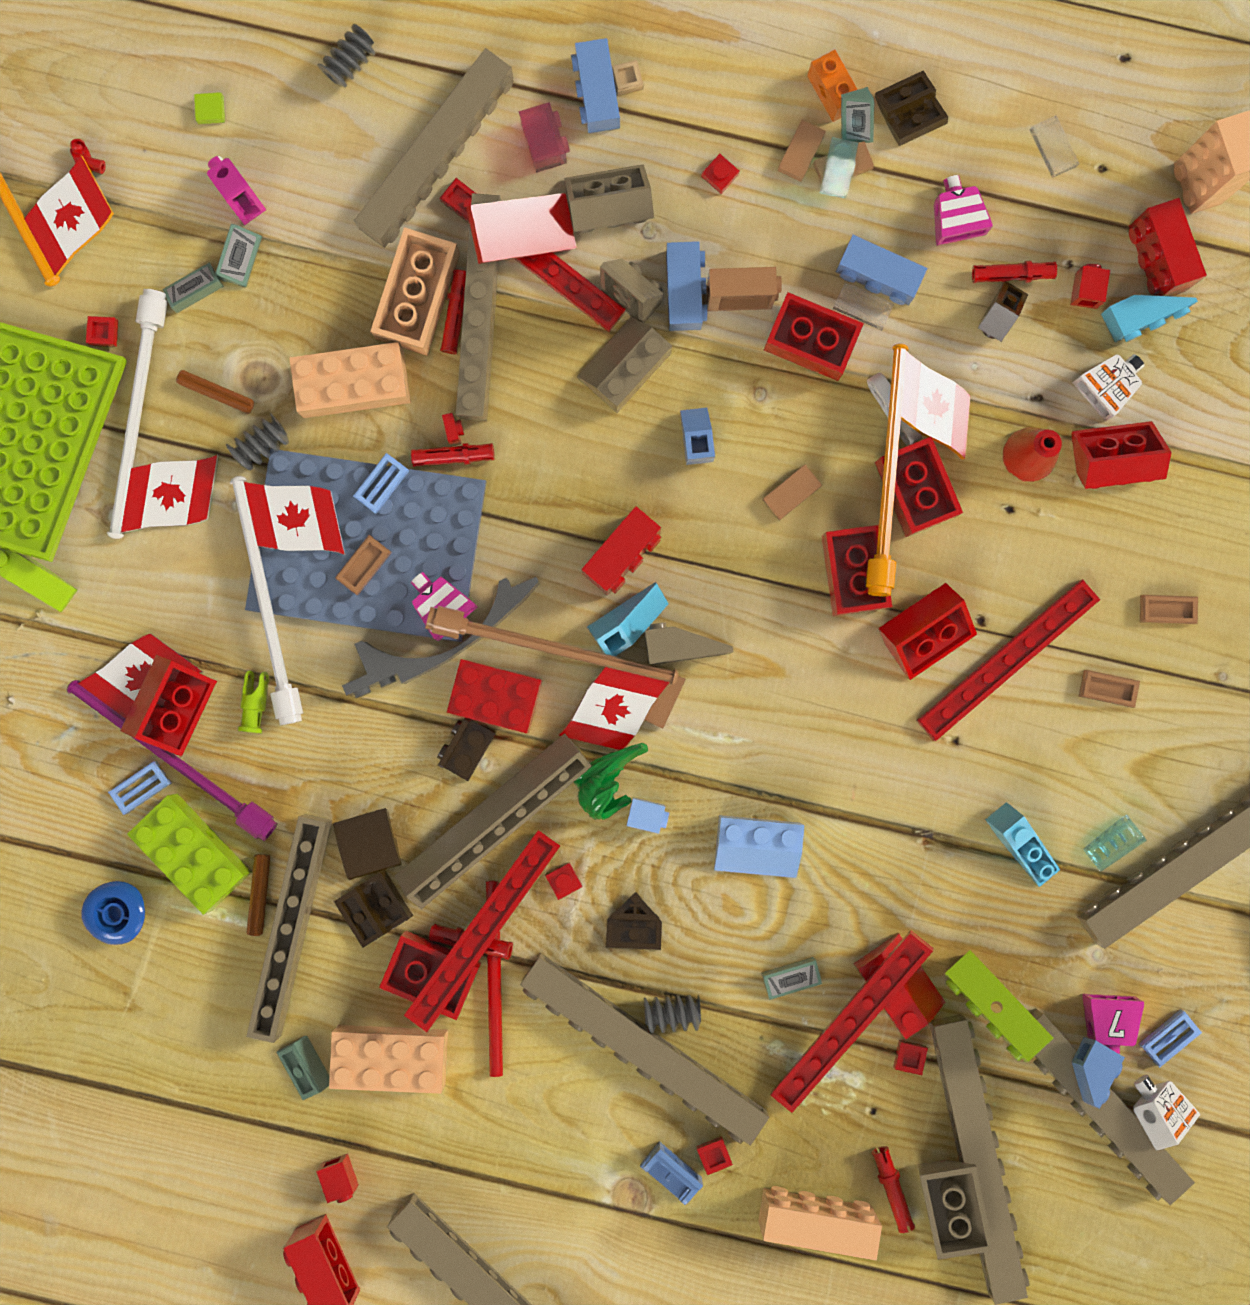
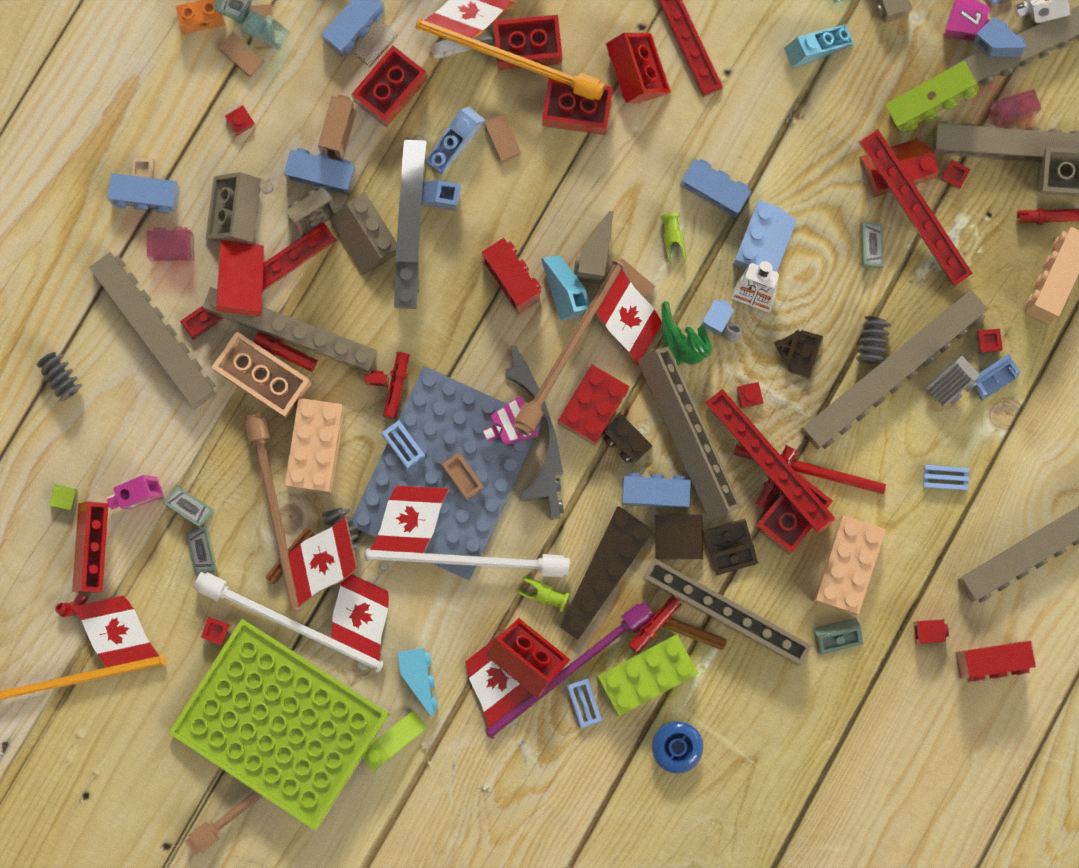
camera: 75 degrees left, 5 degrees down
(114, 580) = (415, 672): none -> medium azure slope
(154, 155) = (90, 547): none -> red brick
(210, 423) = (316, 561): none -> flag
(240, 840) = (653, 626): none -> red pin
(326, 773) = (612, 558): none -> dark brown wing
(413, 801) = (656, 491): none -> medium blue brick
(536, 1169) = (964, 478): none -> light blue tile
(615, 416) = (409, 225): none -> dark grey slope
(640, 838) = (732, 332): none -> light grey hinge
(648, 1127) = (953, 381): none -> light grey brick
(696, 853) = (757, 286): none -> white torso
(732, 732) = (672, 233): none -> lime piece
(773, 436) = (455, 139): none -> light blue slope
(806, 768) = (715, 187): none -> medium blue brick
(1015, 1110) = (1014, 108): none -> clear pink brick

